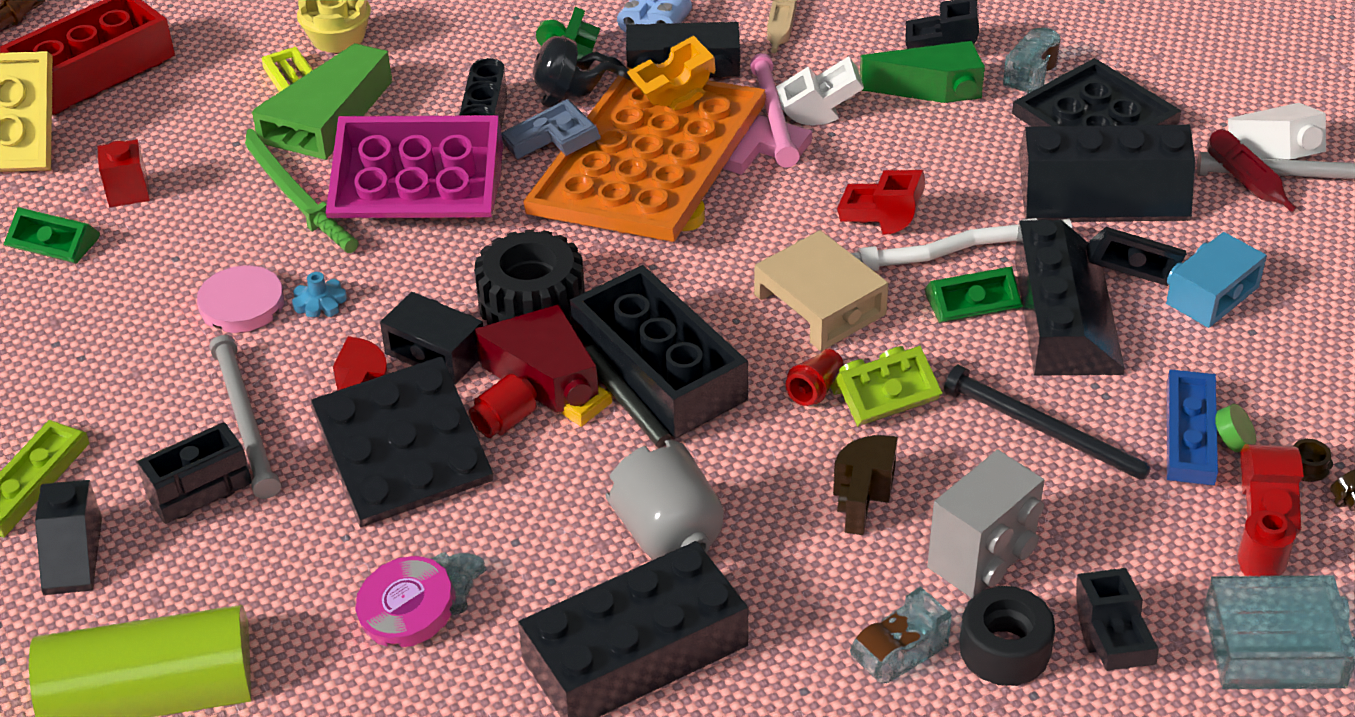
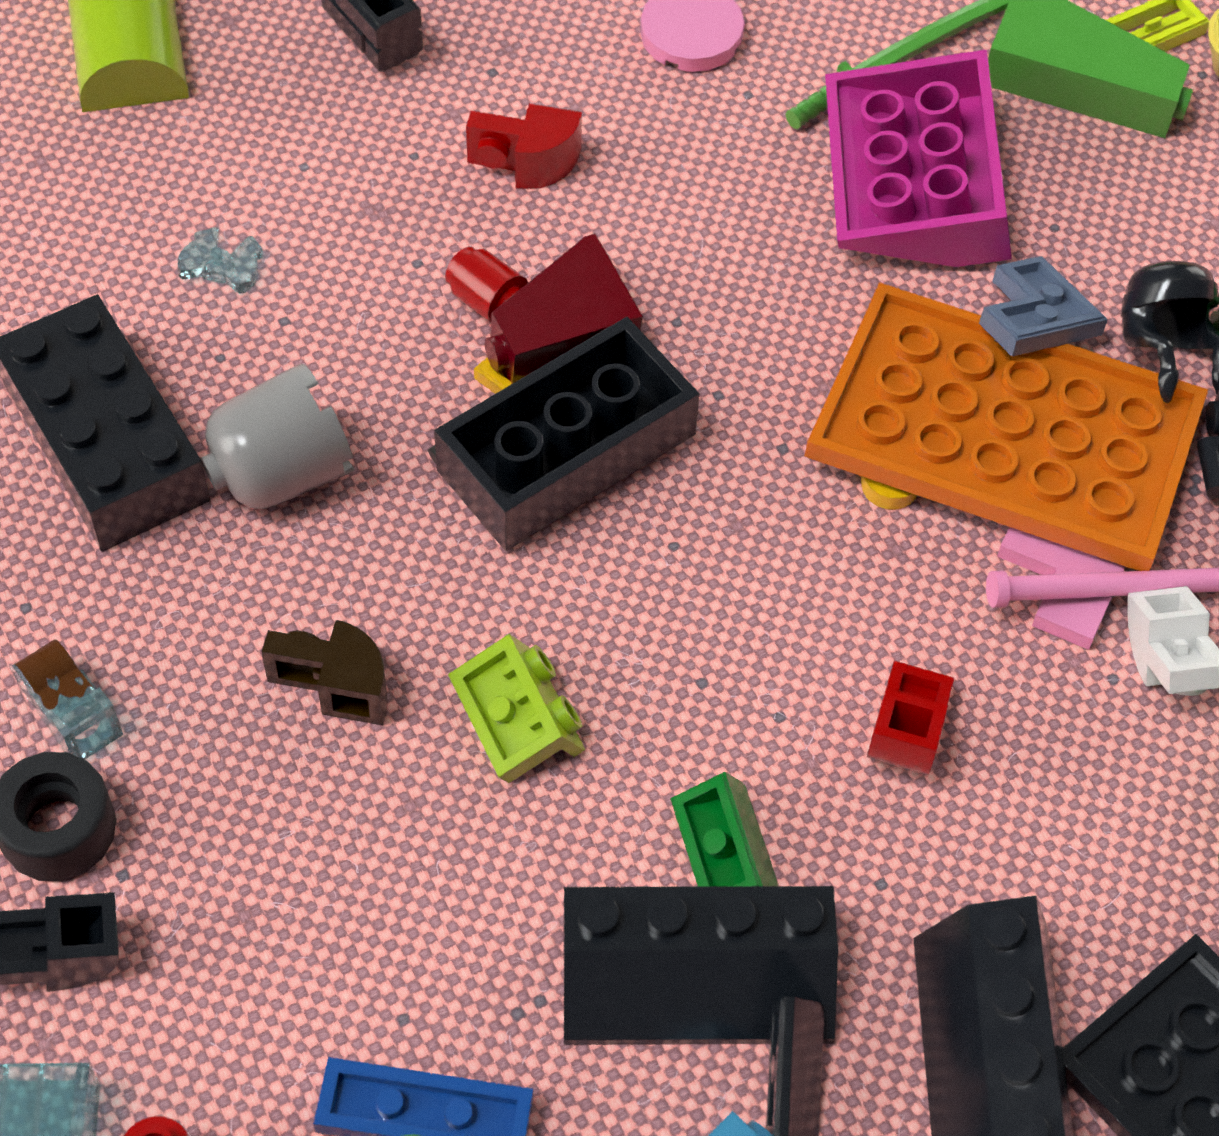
camera: 85 degrees right, 15 degrees up
(265, 482) = (596, 21): light grey bar -> none
(318, 296) = (700, 99): dark azure plant -> none
(401, 441) = (416, 185): black plate -> none
(405, 601) = (183, 216): dark pink tile -> none
(426, 330) = (613, 200): black brick -> none
(485, 89) = (1093, 228): black beam -> none
(527, 275) = (710, 260): black tyre -> none
(678, 79) = (1140, 425): light orange cylinder -> none
(812, 379) = (538, 622): red cone -> none
(823, 287) = (709, 630): tan panel -> none
(876, 258) = (871, 929): white bar -> none
(960, 382) = (527, 806): black bar -> none
(985, 523) = (210, 789): light grey brick -> none

